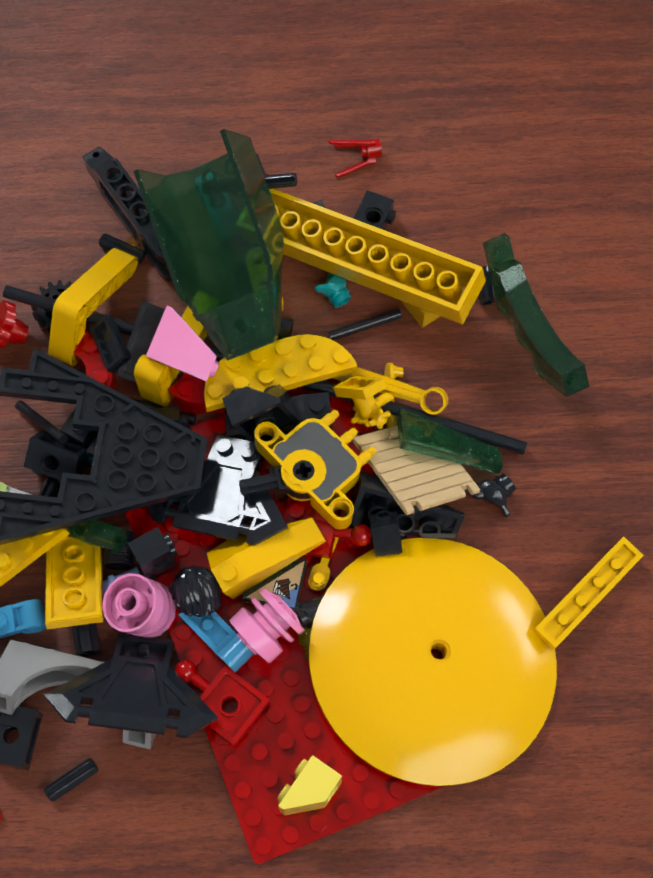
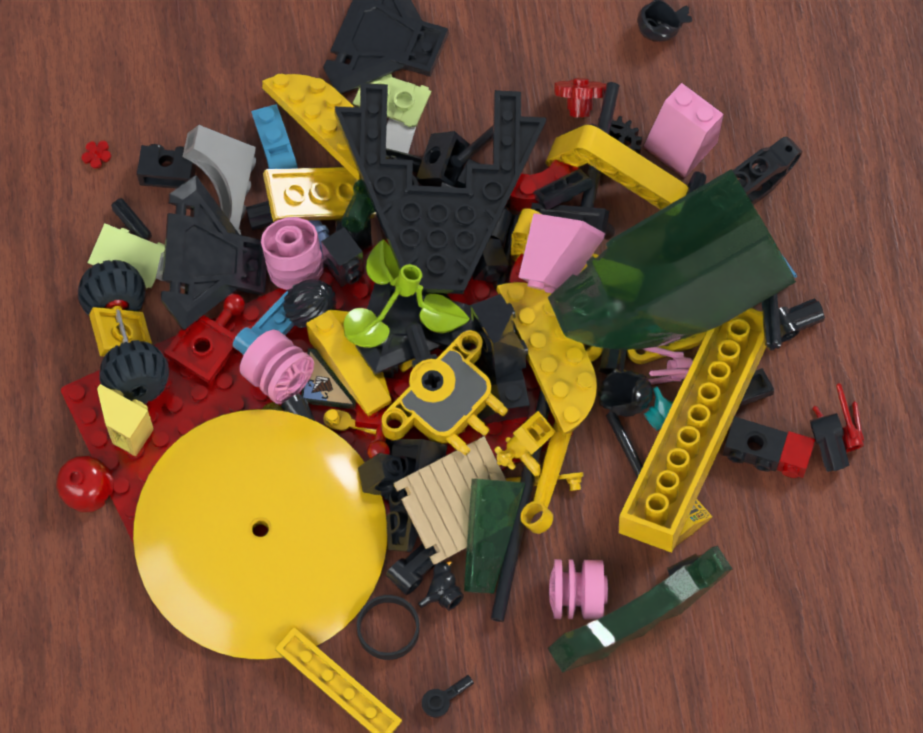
camera: 85 degrees right, 0 degrees up
(60, 240) = (684, 131): none -> bright pink slope
(113, 784) = (123, 246): none -> yellowish green piece
(161, 802) = (112, 299): none -> black plate
(225, 465) = (438, 312): none -> lime plant
(295, 275) = (676, 368): none -> bright pink plant
(316, 314) = (625, 393): none -> black hair
(368, 838) = (84, 483): none -> red cylinder
(376, 160) = (829, 434): none -> black piece
(386, 186) = (795, 455): none -> red brick
(477, 521) = (409, 572): none -> black piece
(505, 370) = (581, 589): none -> bright pink wheel
(536, 520) = (388, 599): none -> black tyre
(602, 506) = (437, 702): none -> black plate

